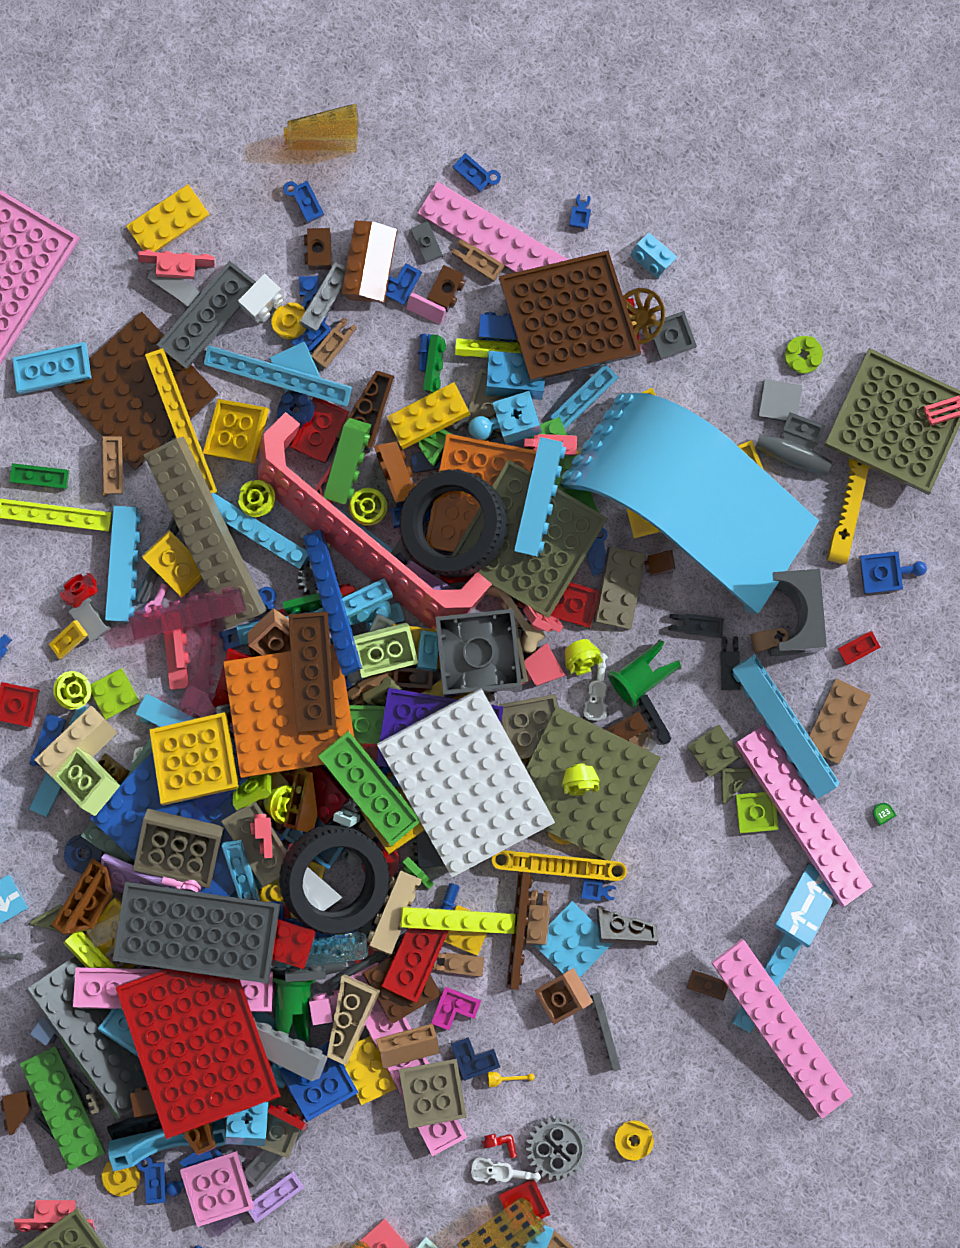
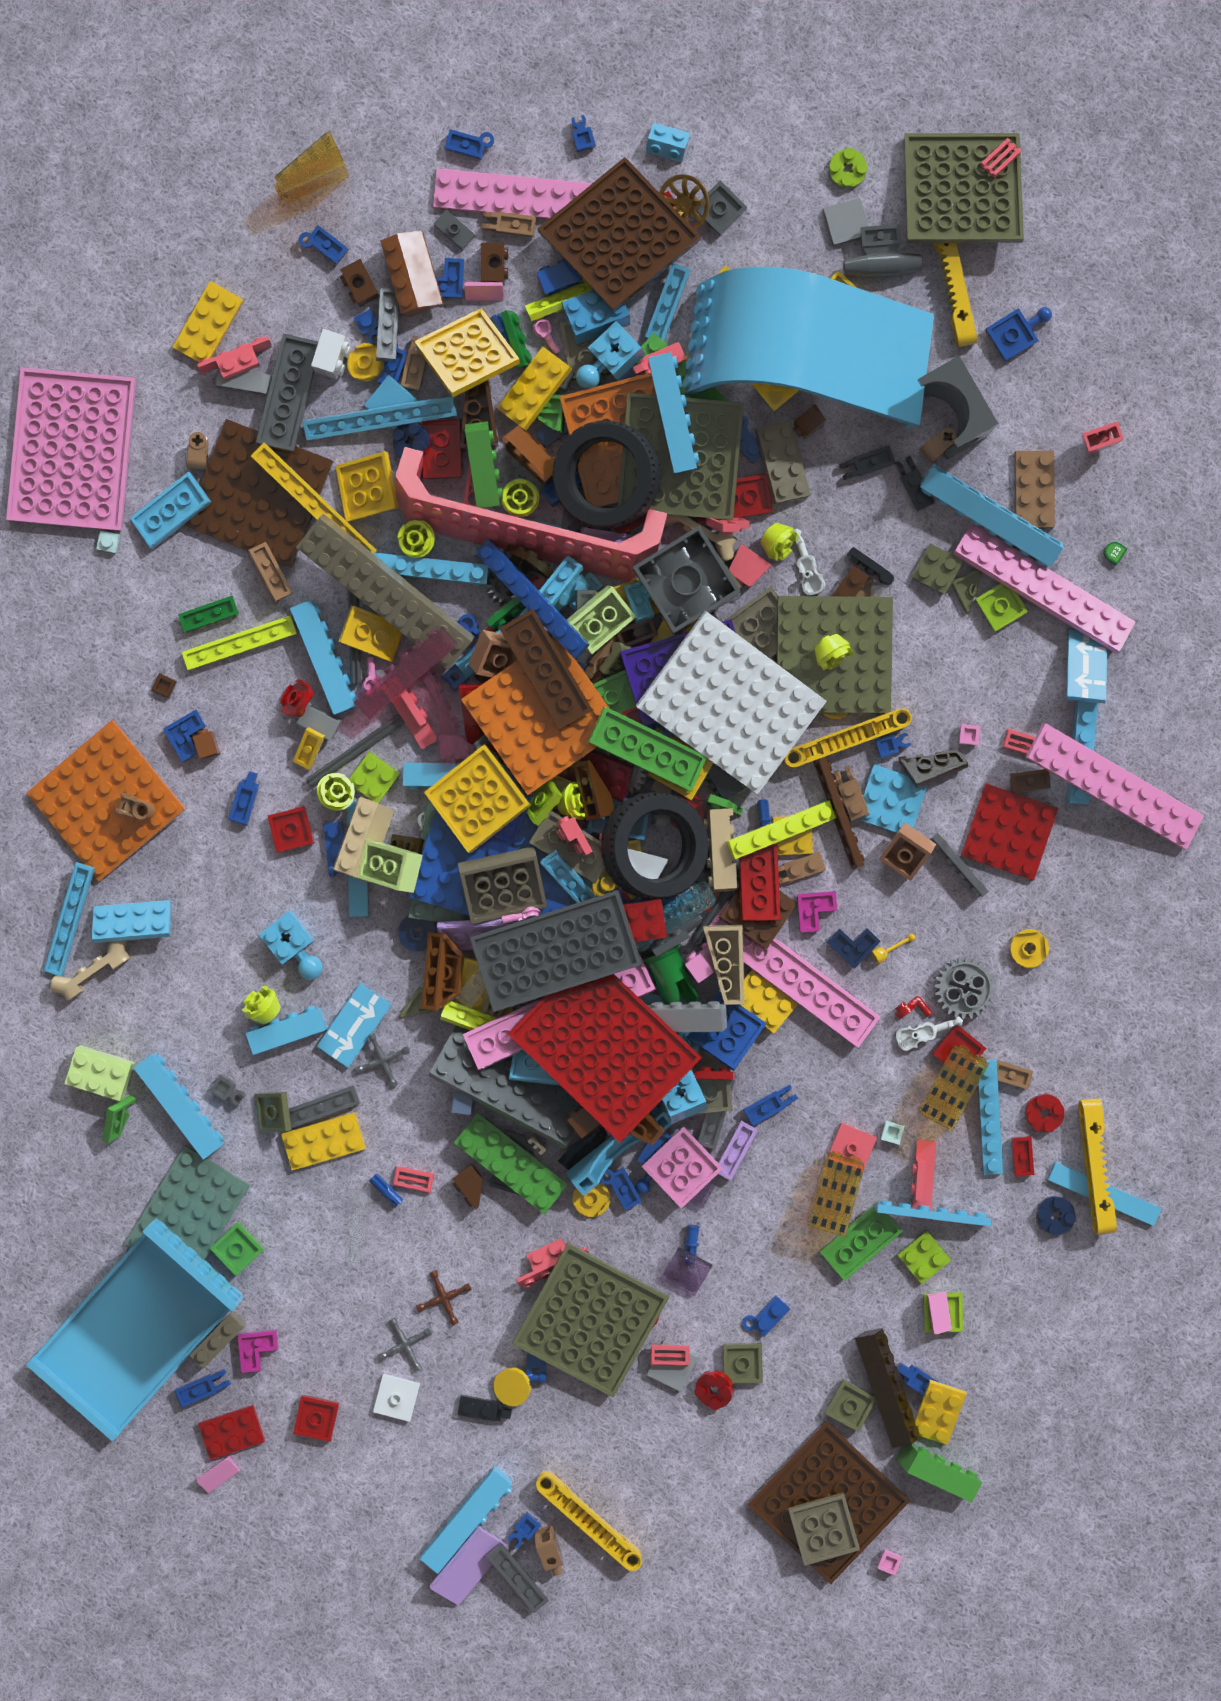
camera: 30 degrees left, 5 degrees up
(99, 330) = (197, 455): none -> medium nougat piece
(110, 661) = (355, 750): none -> dark grey axle
(324, 1170) = (768, 1105): none -> blue hinge
(346, 818) = (639, 786): light aqua plate -> none
(347, 566) = (527, 561): none -> dark brown plate
(383, 355) = (467, 352): none -> yellow plate
(408, 1046) = (790, 961): medium nougat panel -> none
(432, 1093) = (832, 992): dark tan plate -> none
(463, 366) = (542, 329): none -> bright pink plate
(637, 676) = (838, 534): green piece -> none
(667, 1023) = (1009, 831): none -> red plate
(672, 916) = (969, 734): none -> bright pink plate
(705, 936) = (1007, 739): none -> coral tile
(858, 648) = (1023, 413): red plate -> none
(918, 704) = (1101, 439): none -> coral torso

